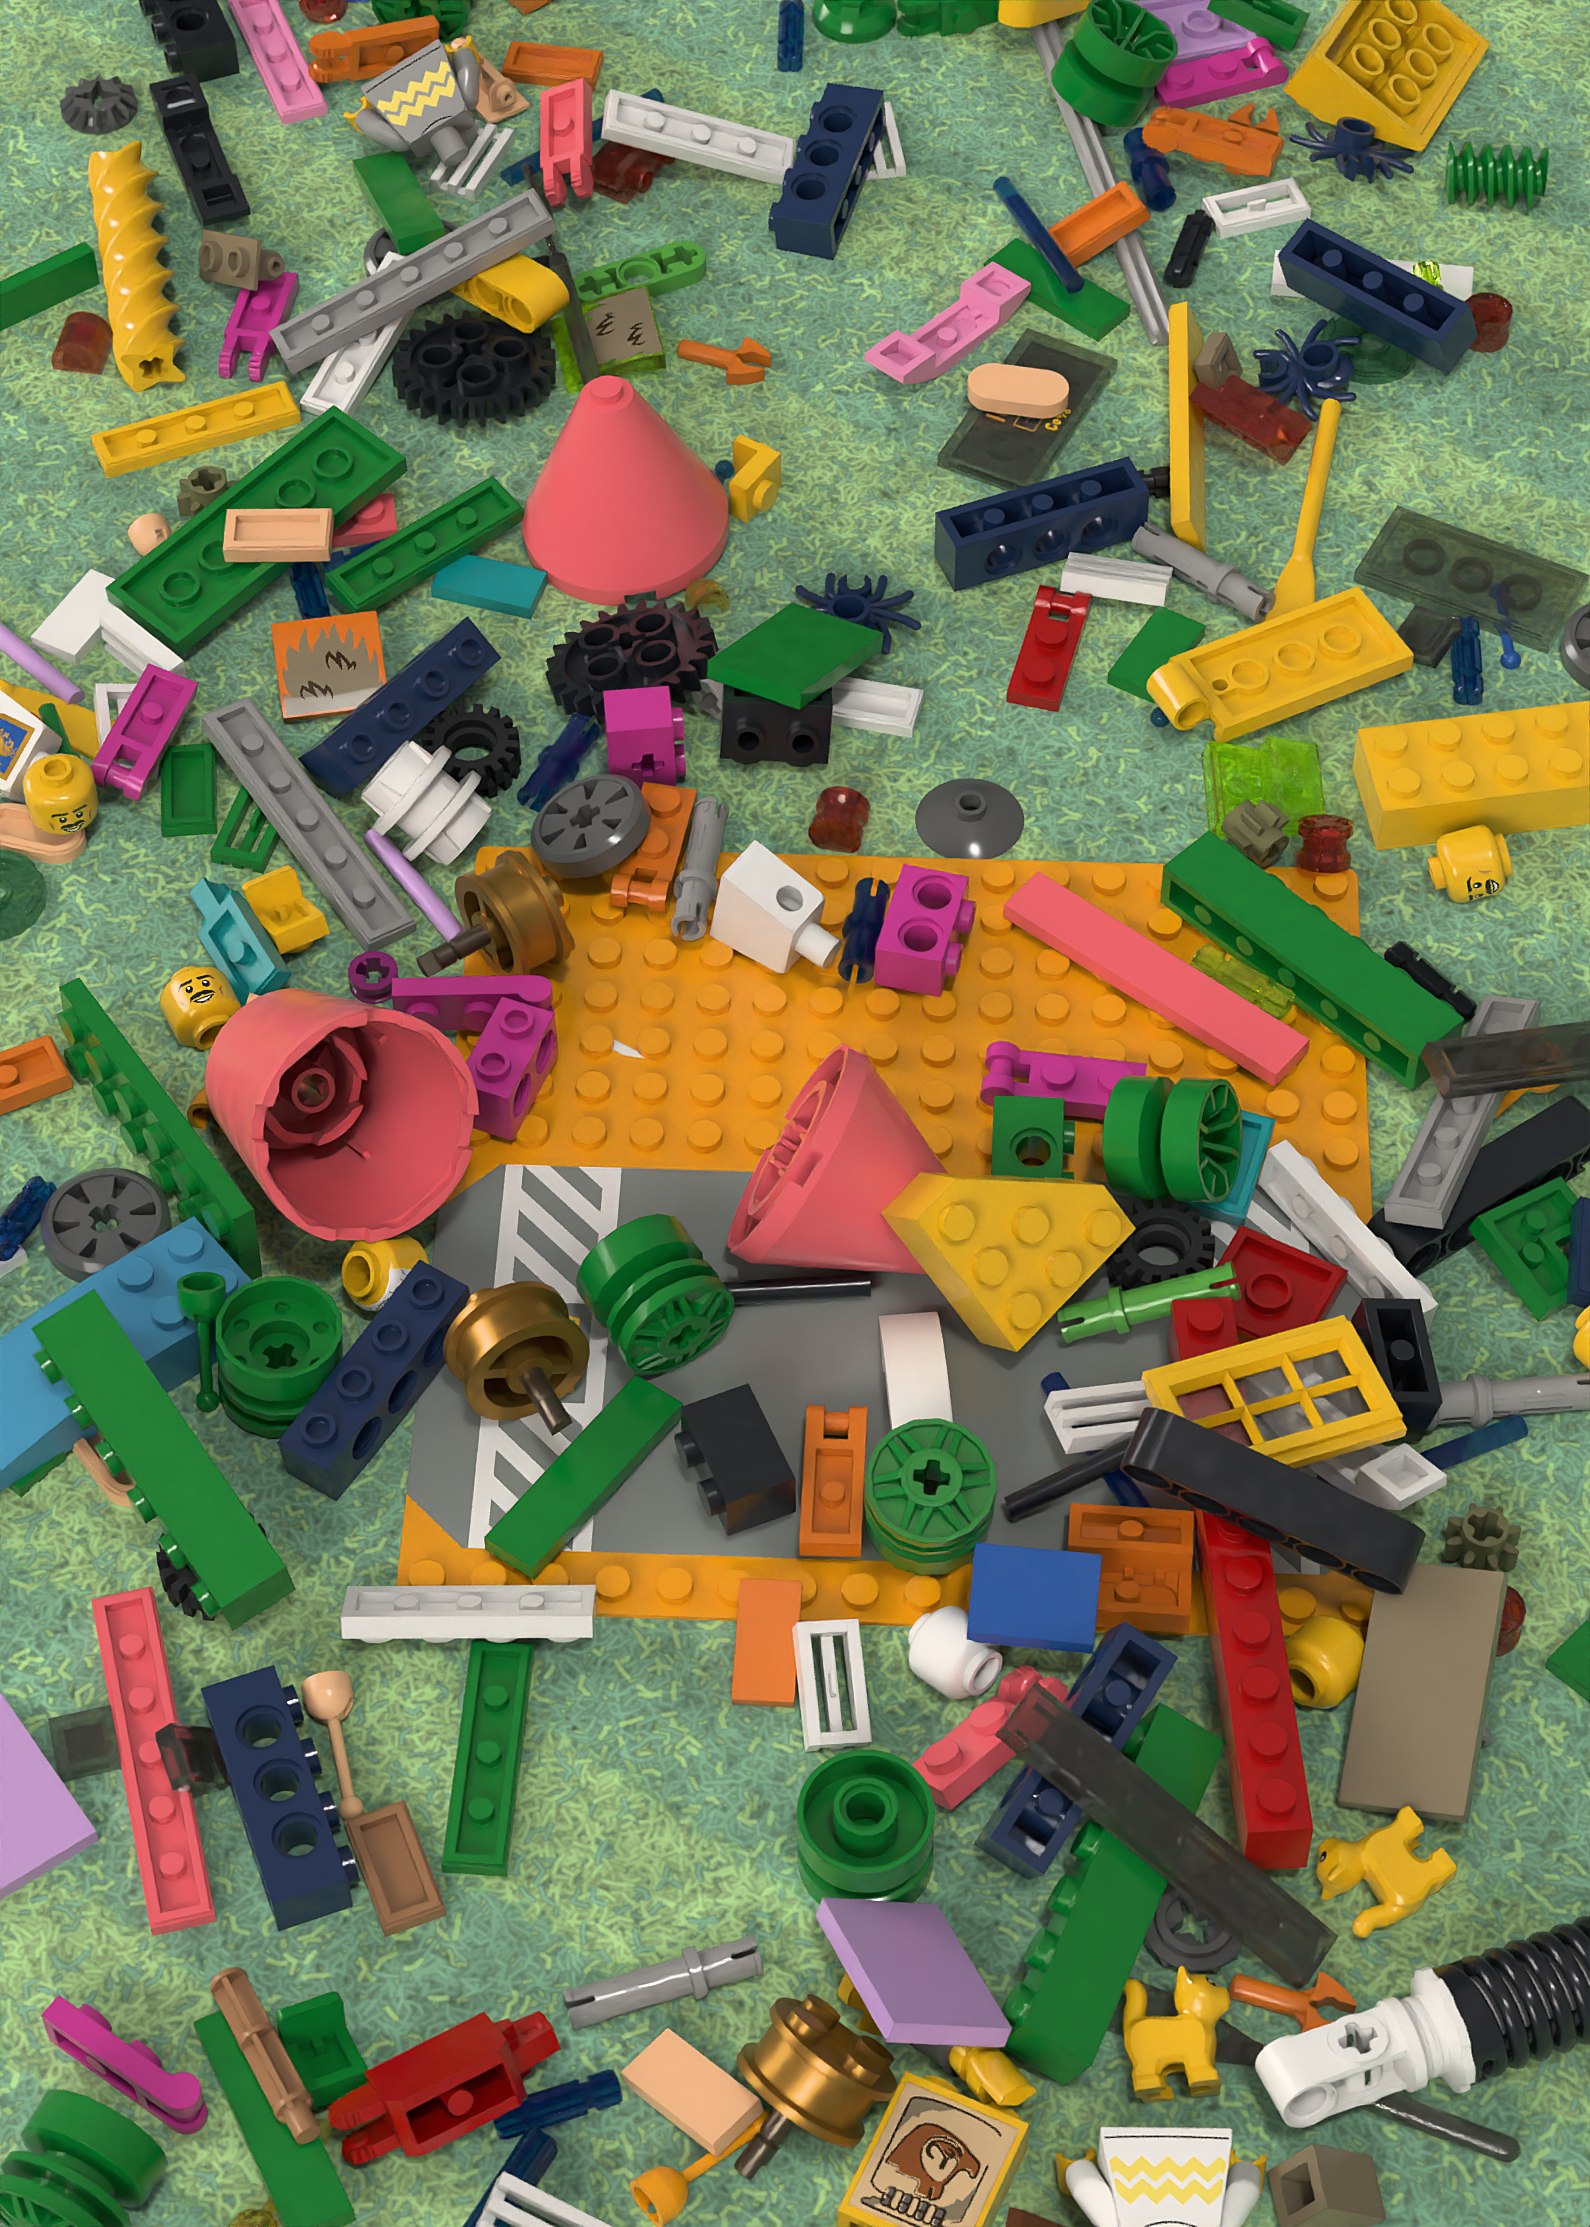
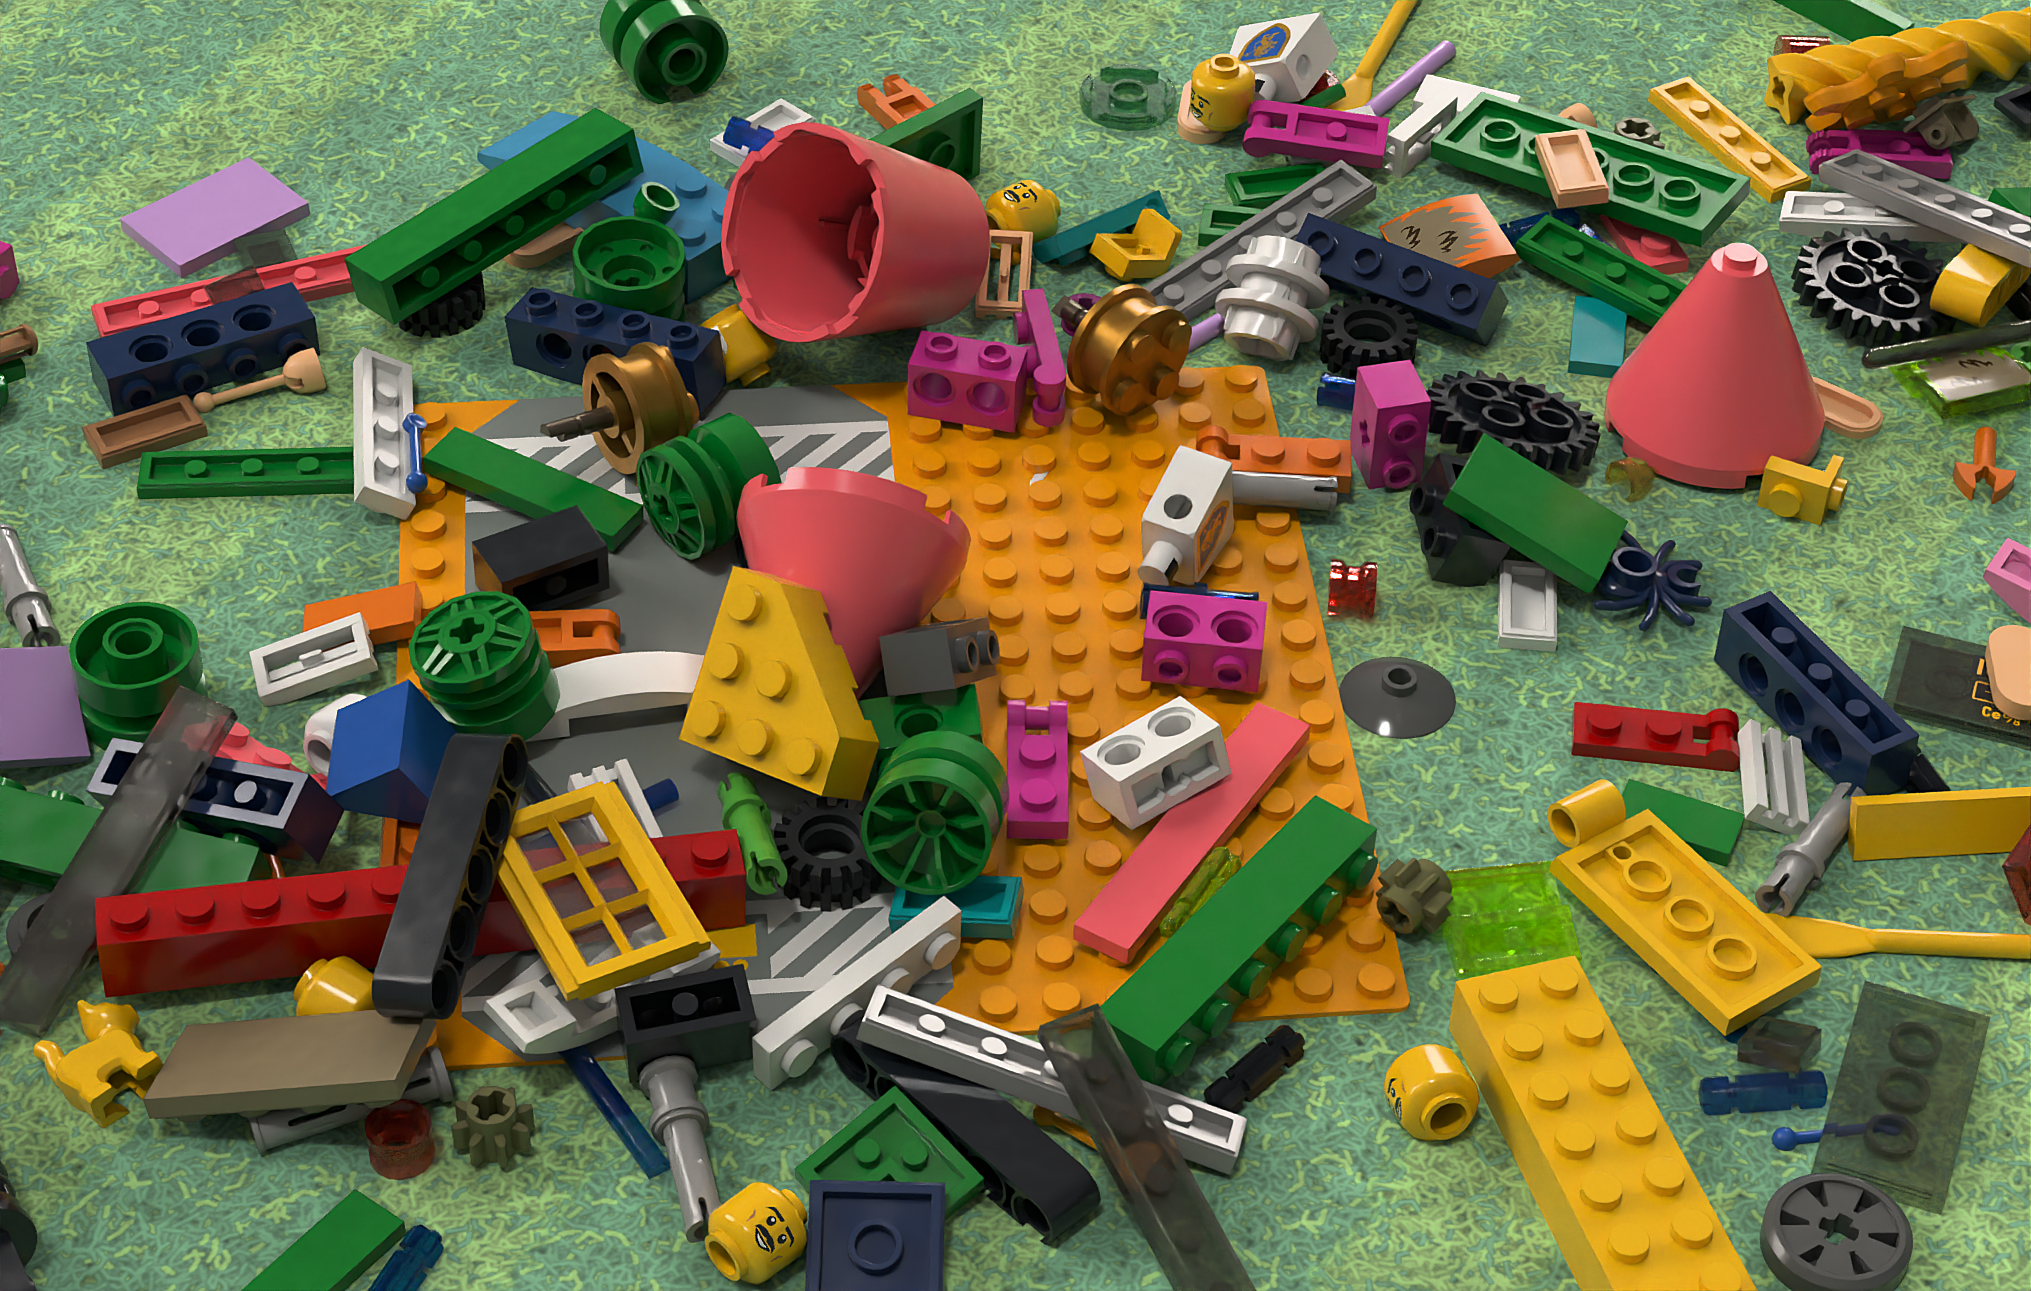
camera: 80 degrees right, 10 degrees down
(222, 273) = (1888, 89): none -> light orange plate
(467, 1580) = (415, 425): none -> blue hinge
(590, 826) = (1275, 404): dark grey wheel -> none
(963, 1114) = (939, 656): none -> dark grey brick
(1100, 978) = (1156, 762): none -> white brick
(1278, 1285) = (796, 943): red tile -> none
(1324, 843) = (1422, 960): clear red wheel -> none

